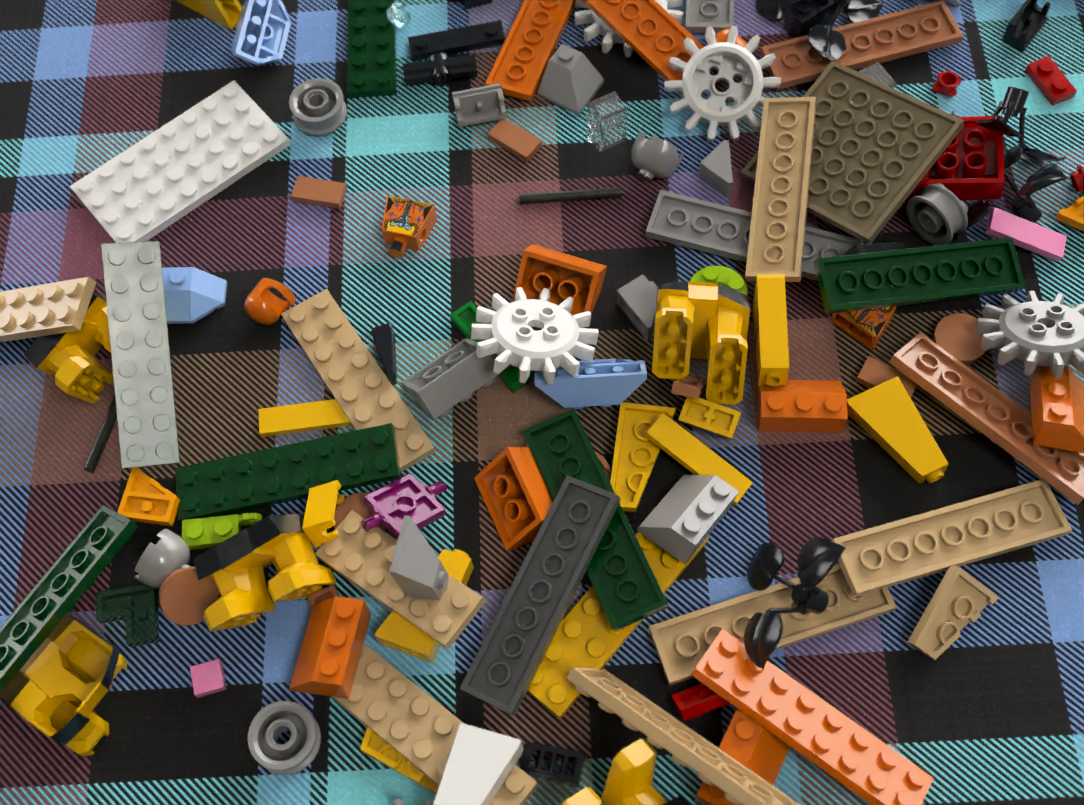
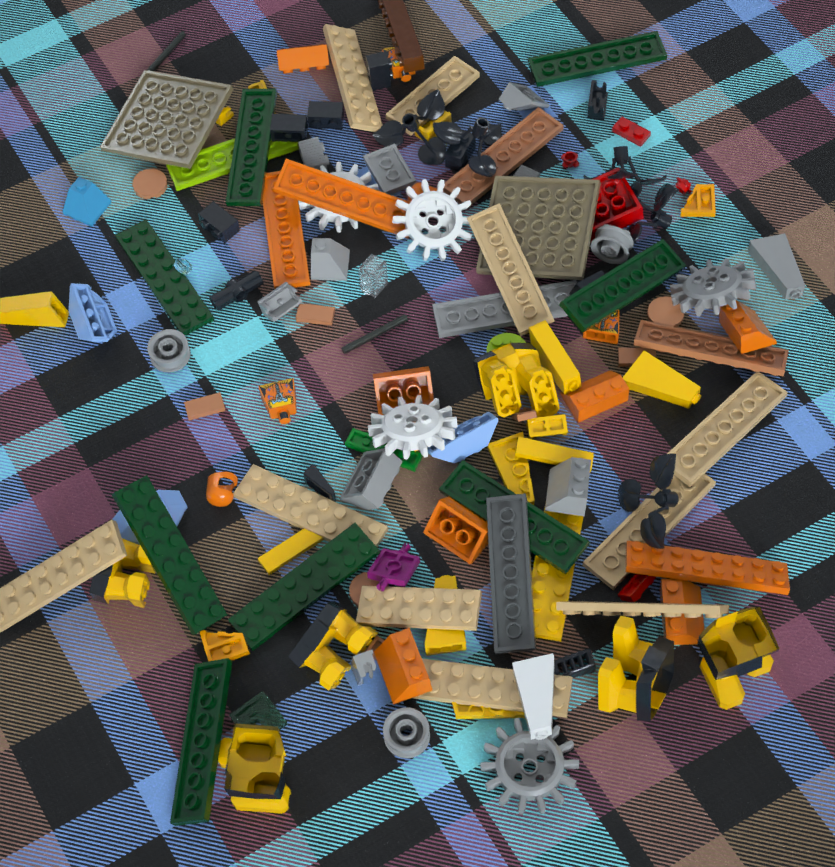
camera: 30 degrees left, 5 degrees down
(101, 439) = (161, 614): pearl dark grey bar -> none
(162, 559) = (264, 673): light grey cylinder -> none
(180, 165) = (93, 433): white plate -> none
(185, 597) = (292, 685): nougat tile -> none
(208, 678) = (333, 728): bright pink tile -> none
(211, 531) = (280, 642): lime hinge -> none
(279, 617) = (362, 664): none -> light grey hinge
(321, 511) = (347, 594): yellow hinge -> none
(416, 564) = (435, 587): light grey slope -> none
(457, 40) = (233, 266): black plate -> none
(639, 304) = (463, 381): light grey slope -> none
(654, 157) = (417, 286): light grey cylinder -> none
(717, 169) = (461, 276): light grey slope -> none
(949, 611) = (746, 468): tan wing -> none
(1026, 234) = (669, 233): bright pink tile -> none

